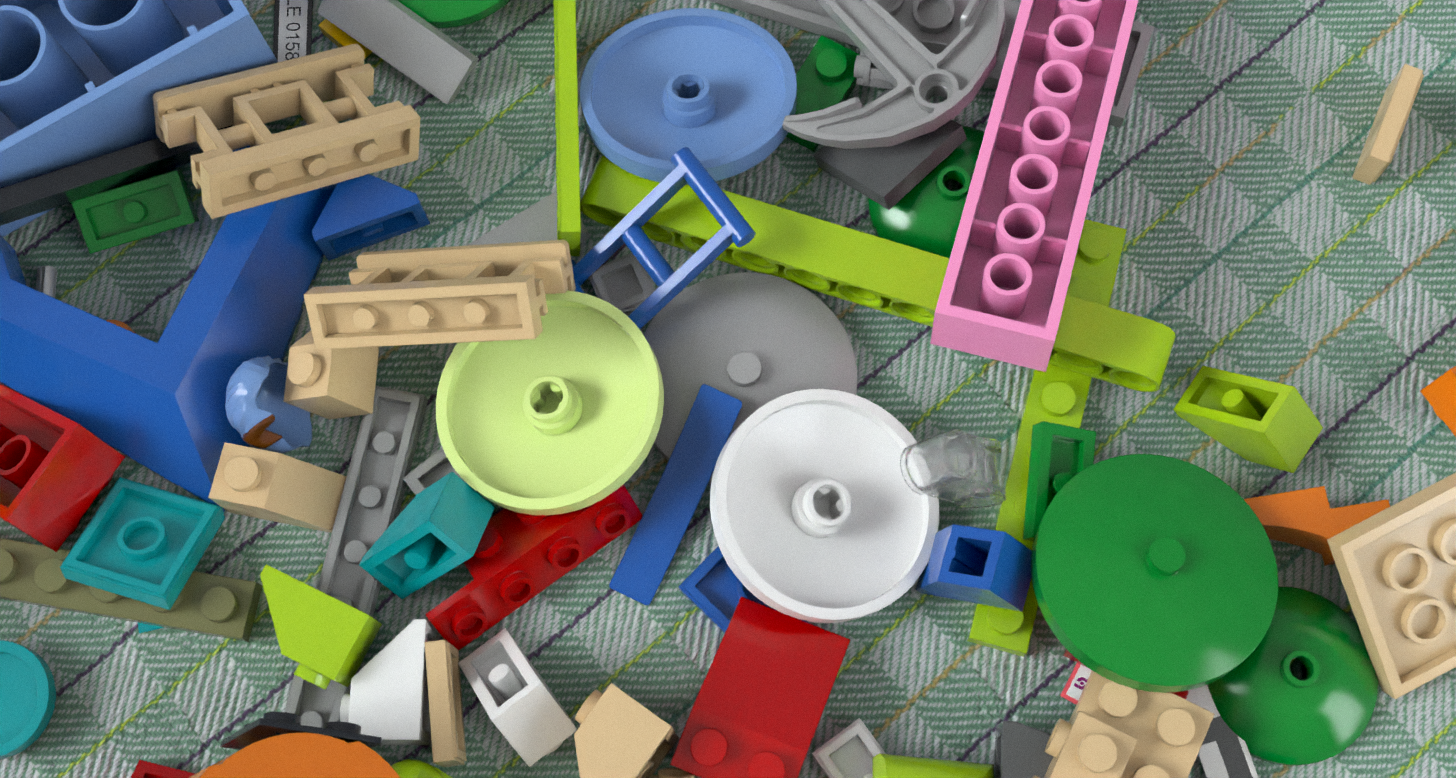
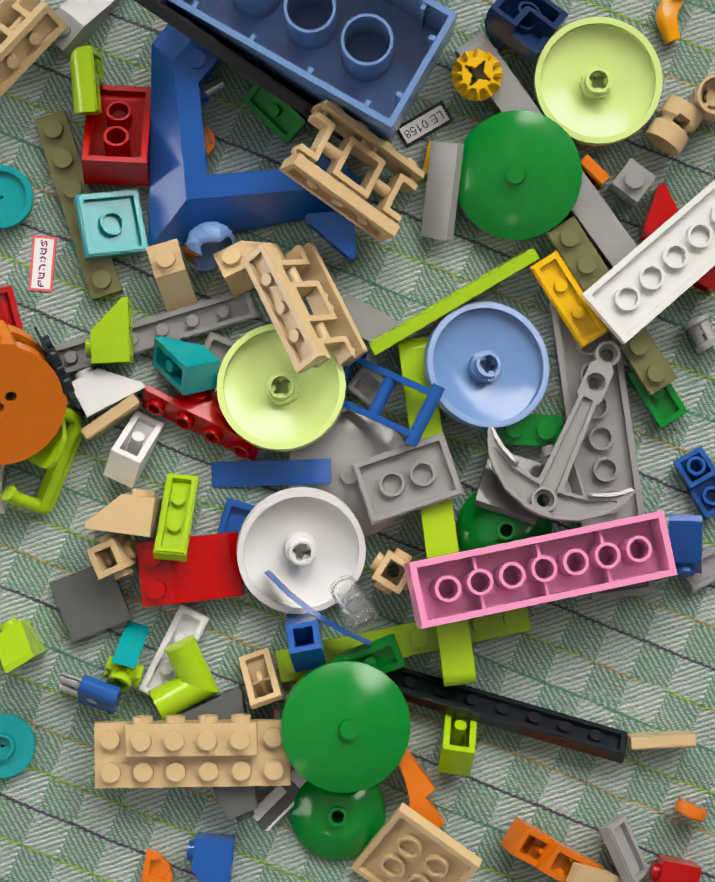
camera: 55 degrees right, 15 degrees up
(140, 693) = (42, 263): none -> white sticker
(666, 677) = (176, 517): none -> lime tile
(798, 280) = (407, 479): none -> light grey tile
(936, 365) = (385, 582): none -> tan brick
(995, 493) = (314, 613): none -> sticker
(1005, 681) = (261, 678): none -> tan slope
(1252, 317) = (511, 715): none -> black tile

